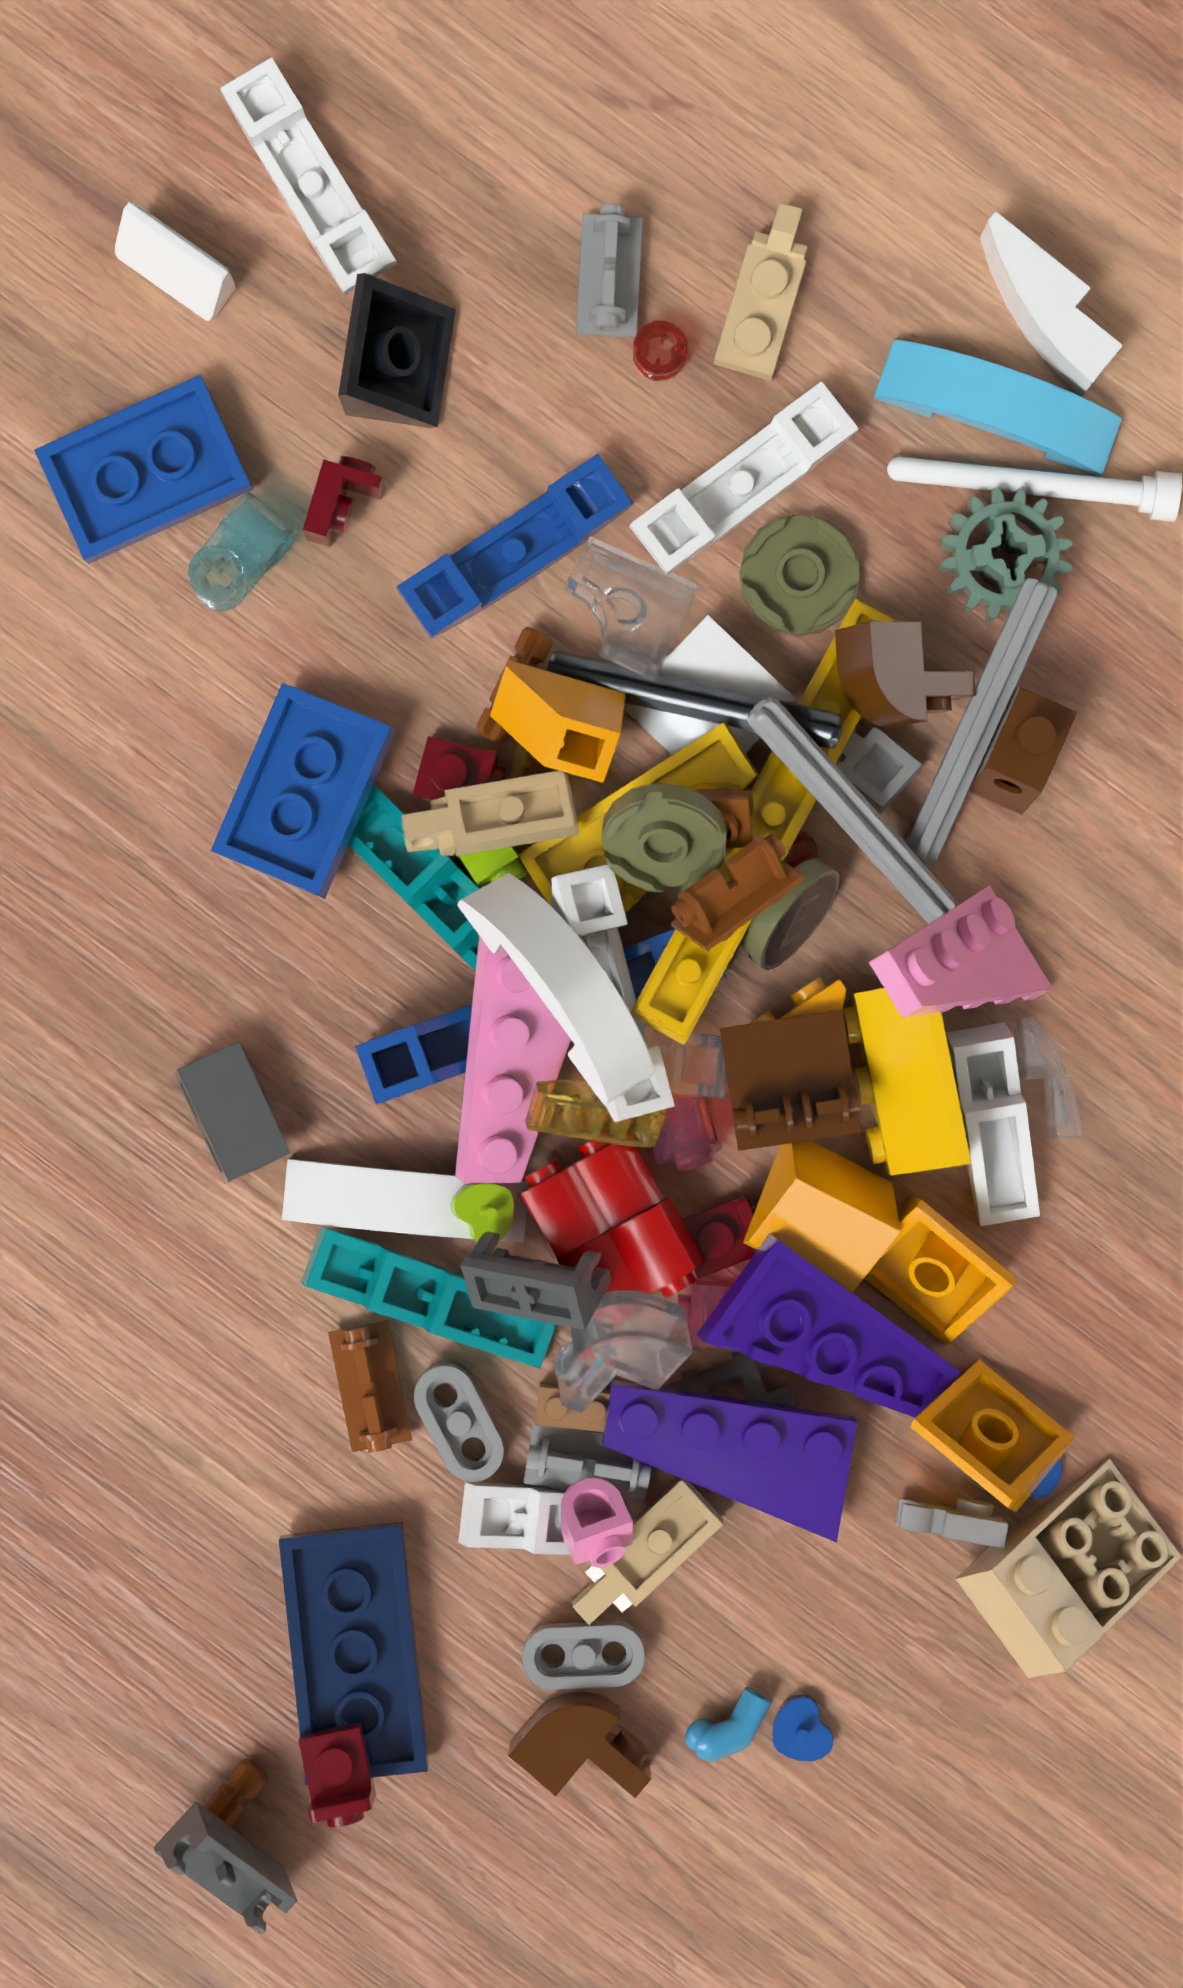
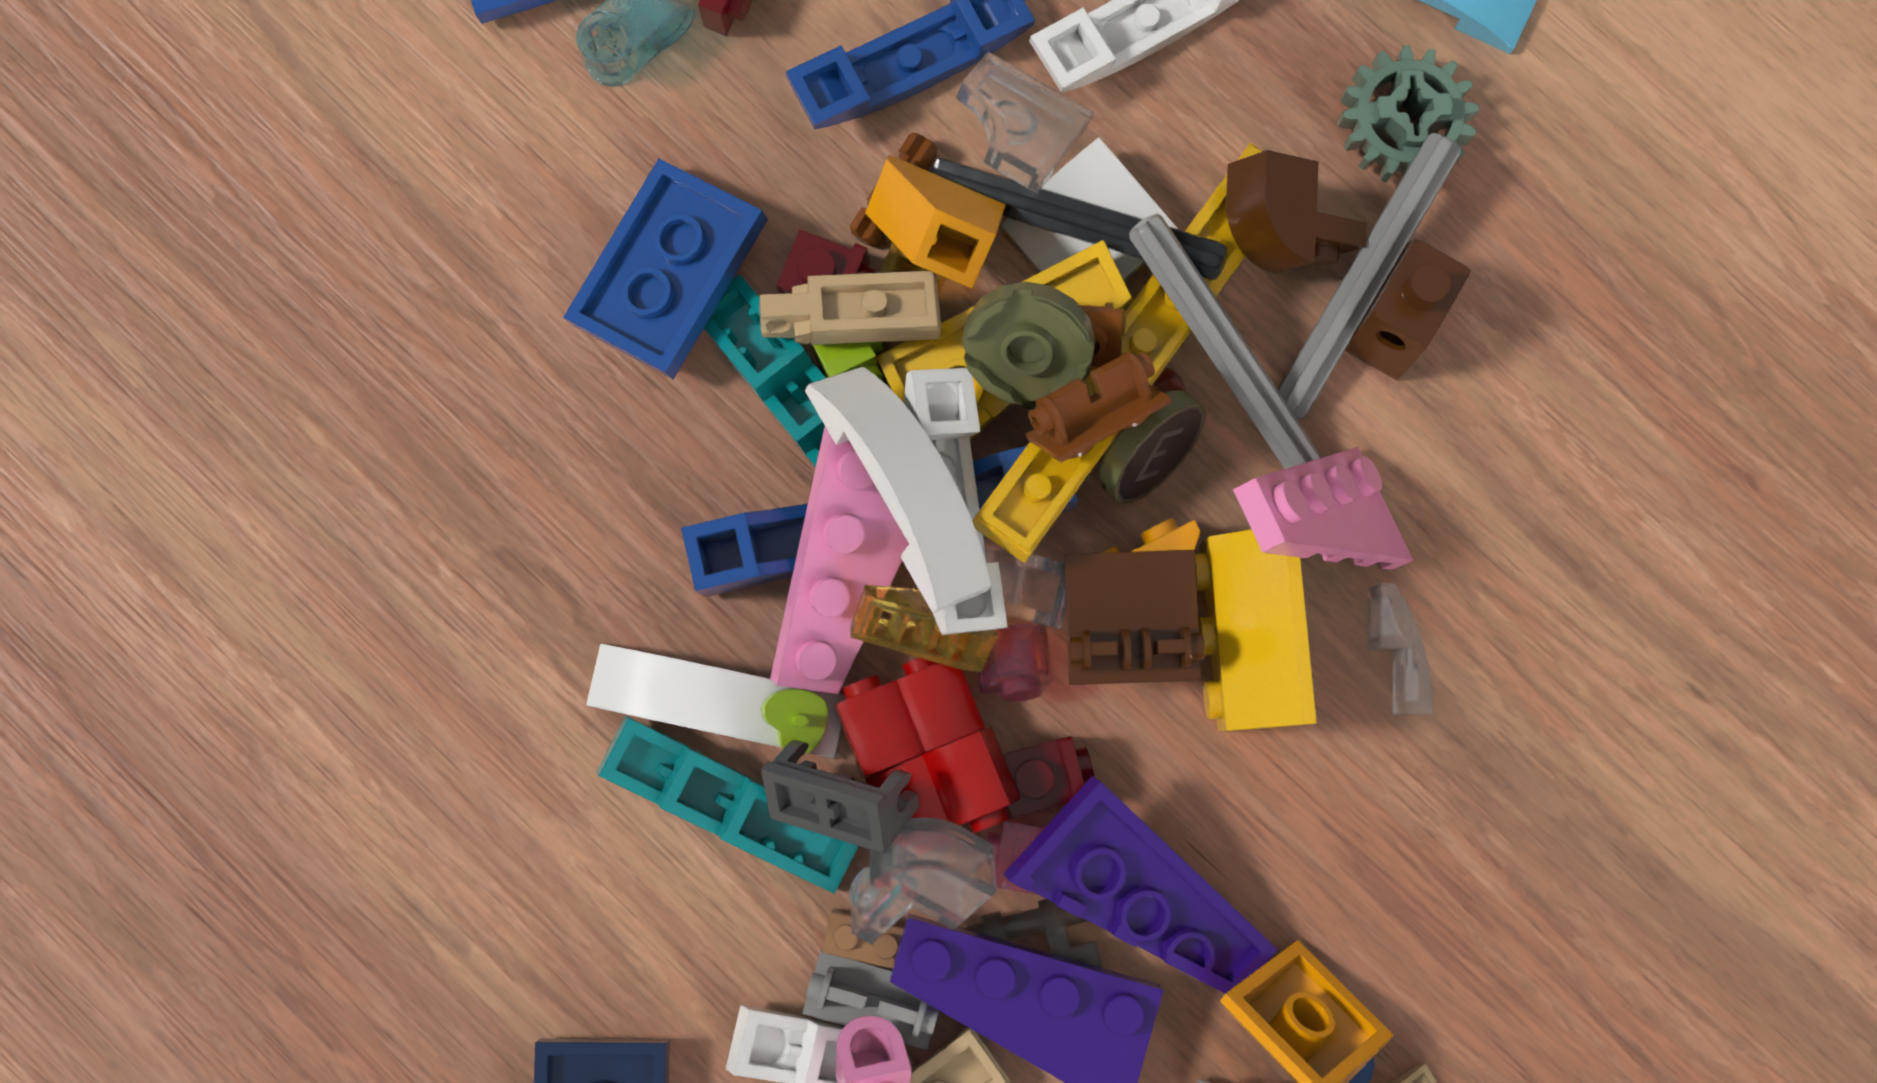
camera: 10 degrees right, 5 degrees down
(231, 1112) = (548, 587): dark grey hinge -> none
(370, 1386) = (654, 891): dark orange hinge -> none
(458, 1421) = (742, 939): light grey plate -> none
(799, 574) = (1195, 114): olive tile -> none
(826, 1211) = (1154, 761): light orange slope -> none
(877, 767) = (1258, 310): light grey plate -> none
(938, 1273) = (1261, 838): light orange slope -> none
(994, 1123) = (1345, 739): white slope -> none
(1152, 495) = (1565, 74): white piece -> none

